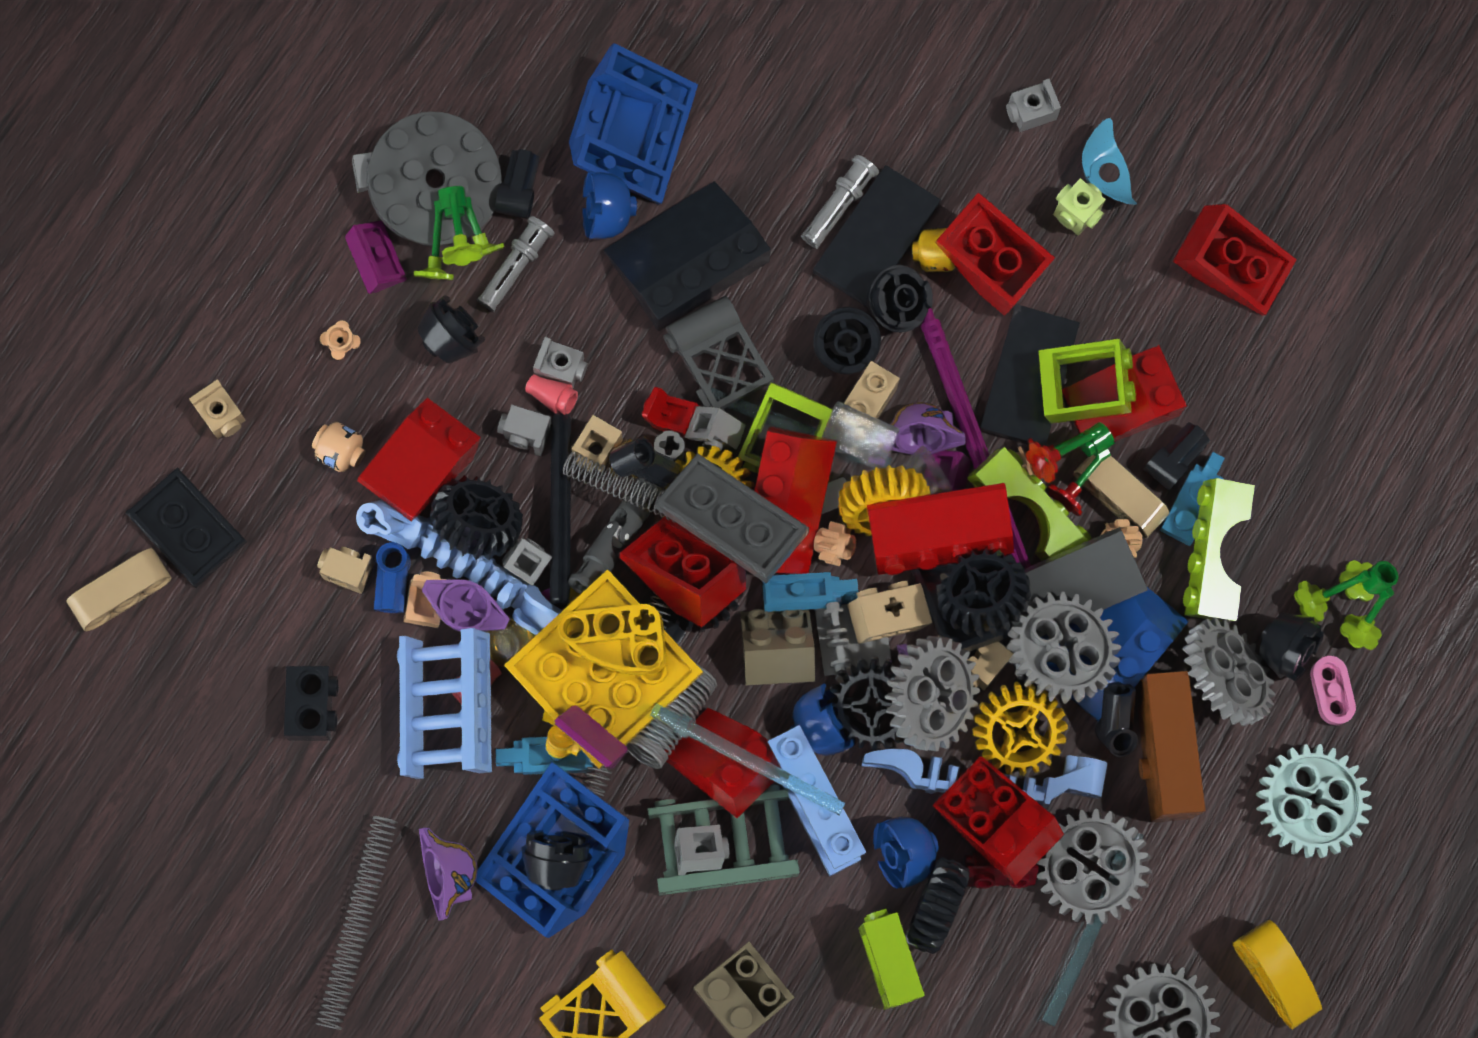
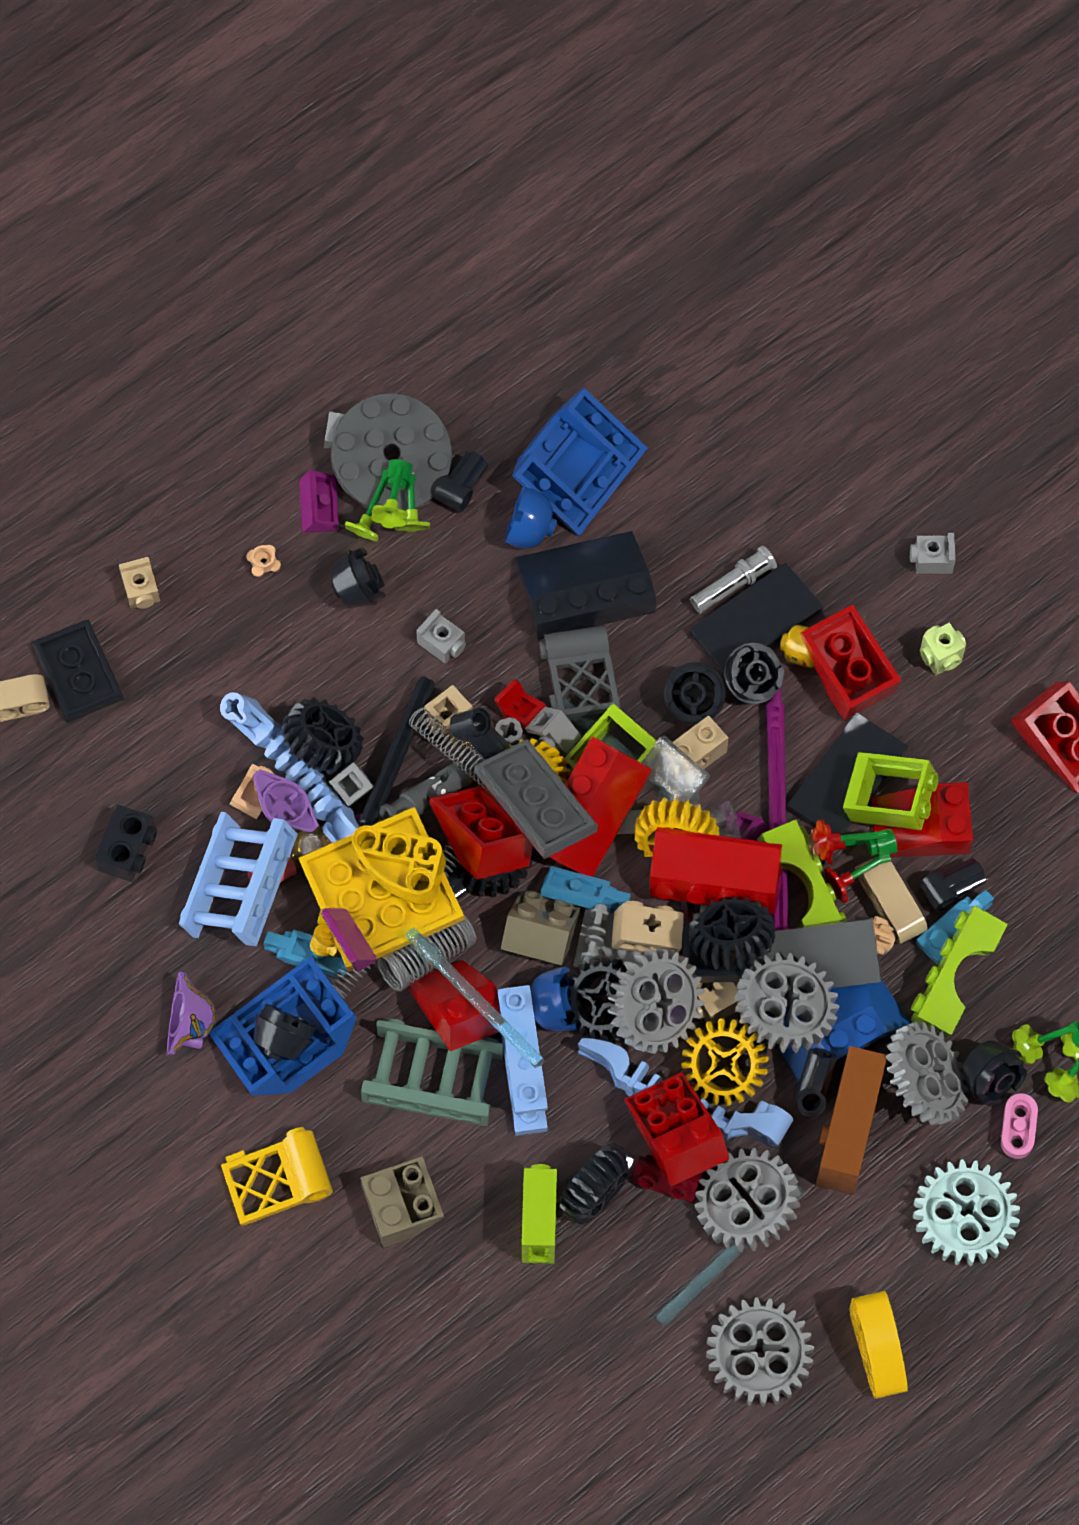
camera: 25 degrees right, 10 degrees down
(338, 446) = (229, 645): light nougat head -> none
(345, 568) = (198, 745): tan brick -> none
(359, 924) = (96, 1035): light grey piece -> none
(391, 582) = (231, 766): blue piece -> none
(419, 459) = (293, 671): red slope -> none
(520, 247) = (445, 536): light grey pin -> none
(525, 428) = (392, 680): light grey brick -> none
(555, 395) = (426, 660): coral cone -> none
(700, 838) = (409, 1065): light grey brick -> none
(834, 543) = (622, 858): light nougat gear -> none
(907, 851) = (589, 1129): blue cylinder -> none
(927, 426) = (736, 785): medium lavender hat -> none
(1101, 150) = (981, 608): medium azure piece -> none

